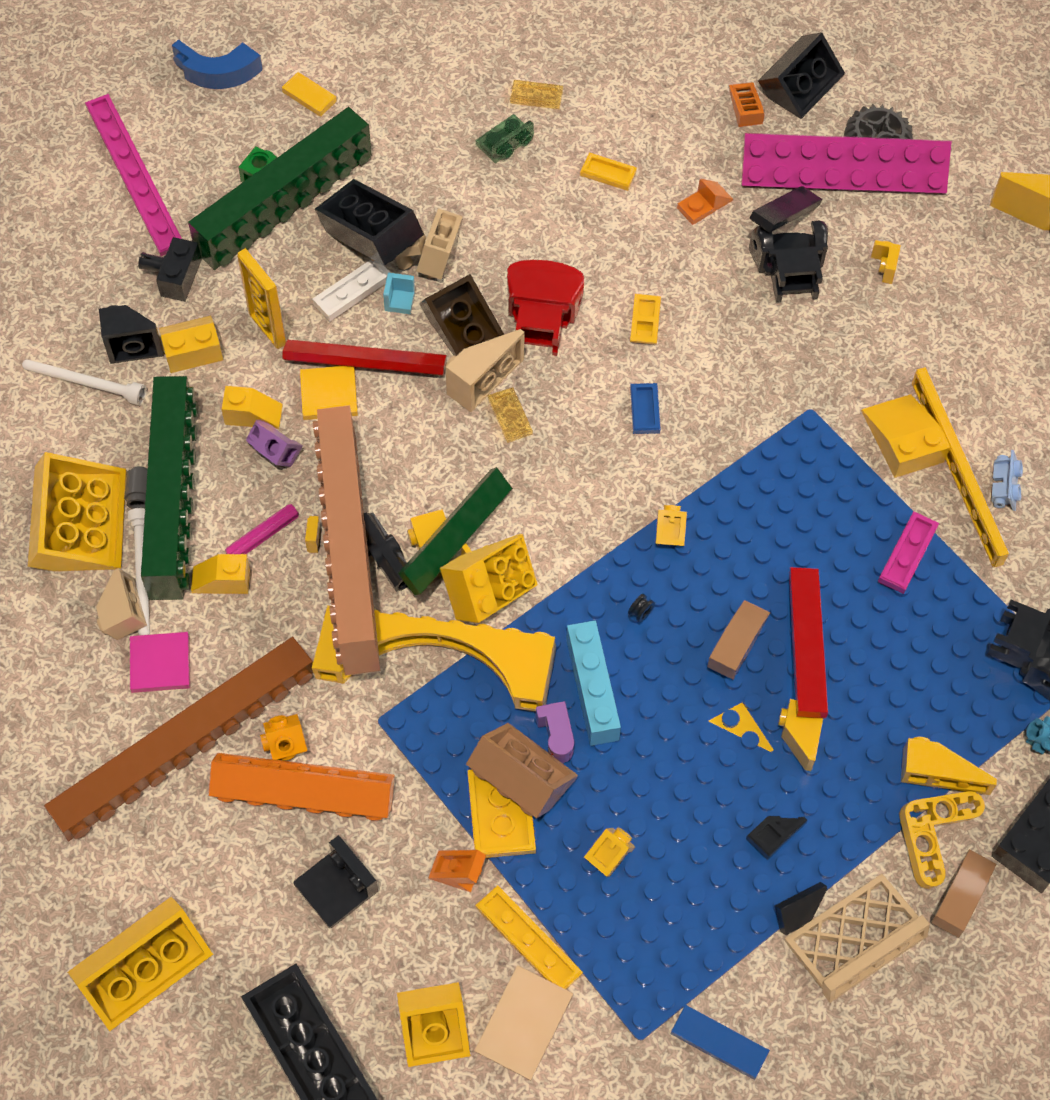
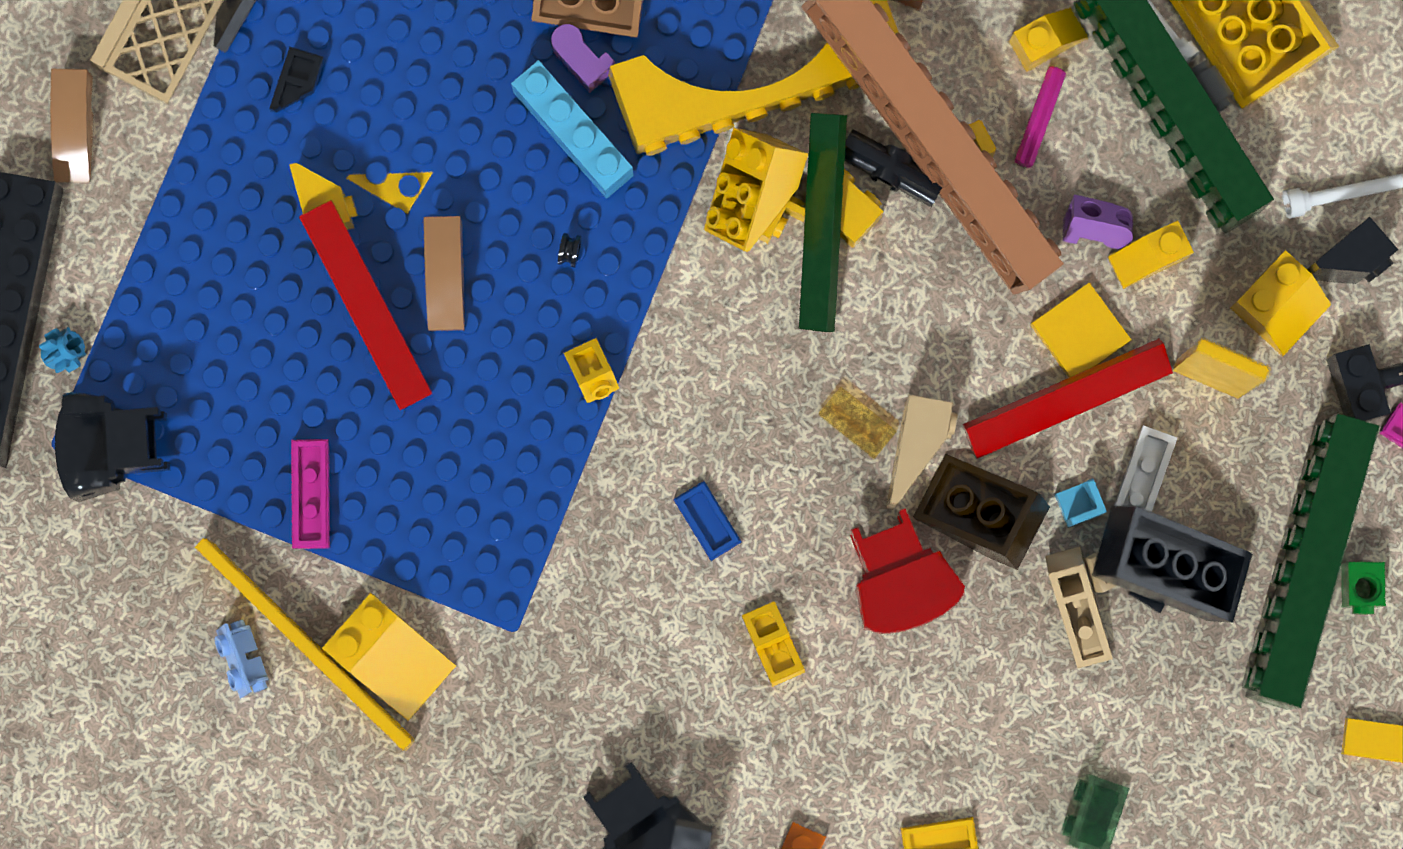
camera: 150 degrees right, 20 degrees up
(925, 828) = (145, 175): yellow beam -> none
(937, 766) = (164, 240): yellow slope -> none

